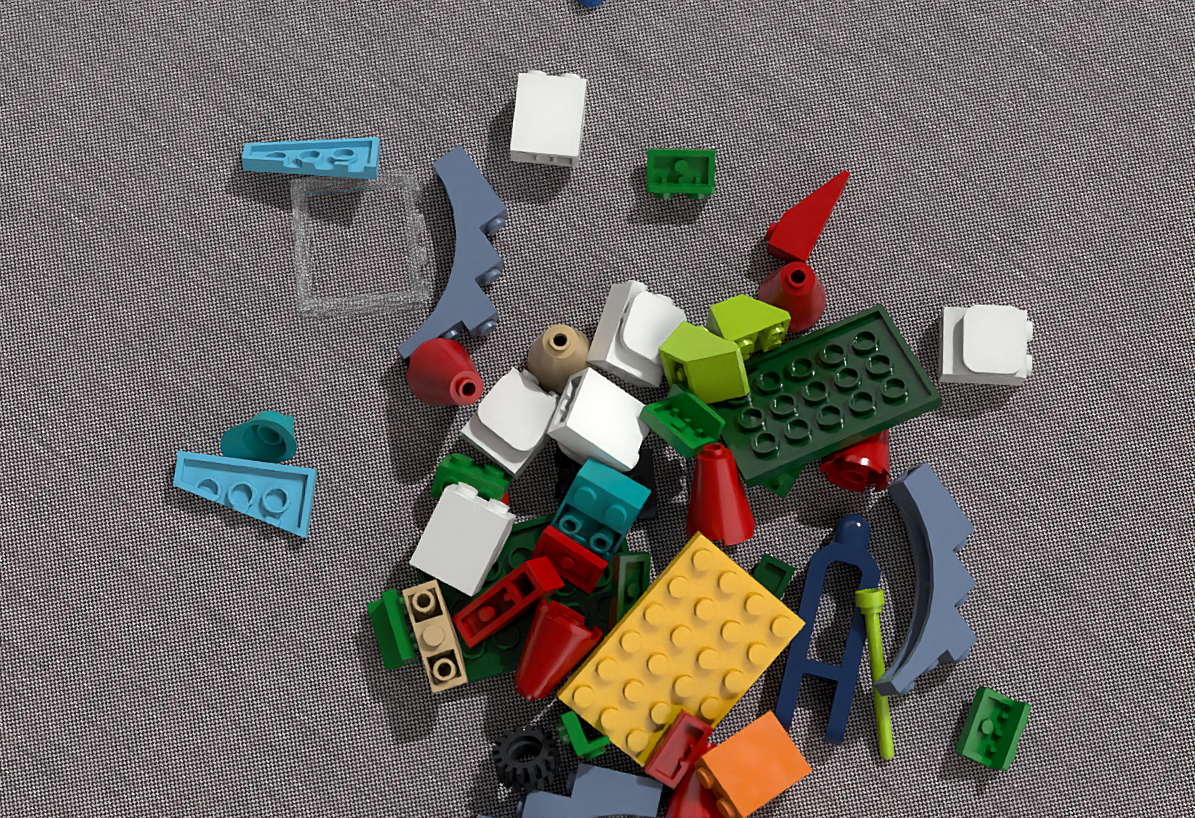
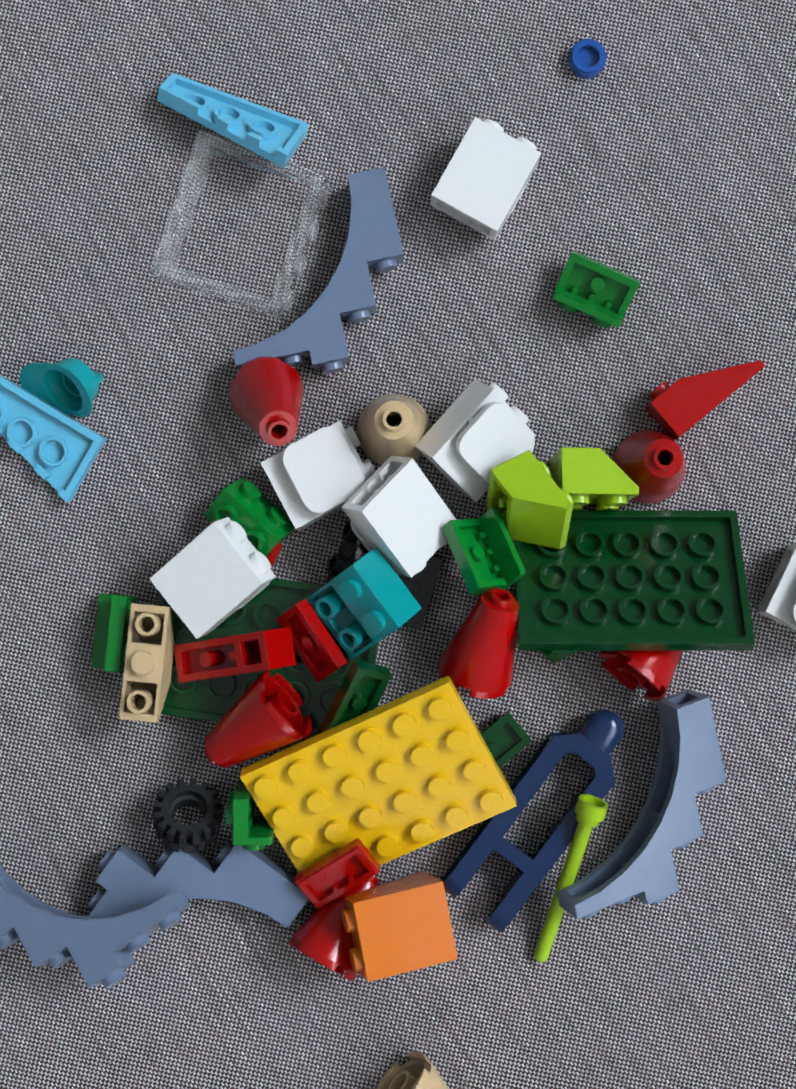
camera: 20 degrees right, 10 degrees up
(992, 729) = (654, 981): green bracket -> none

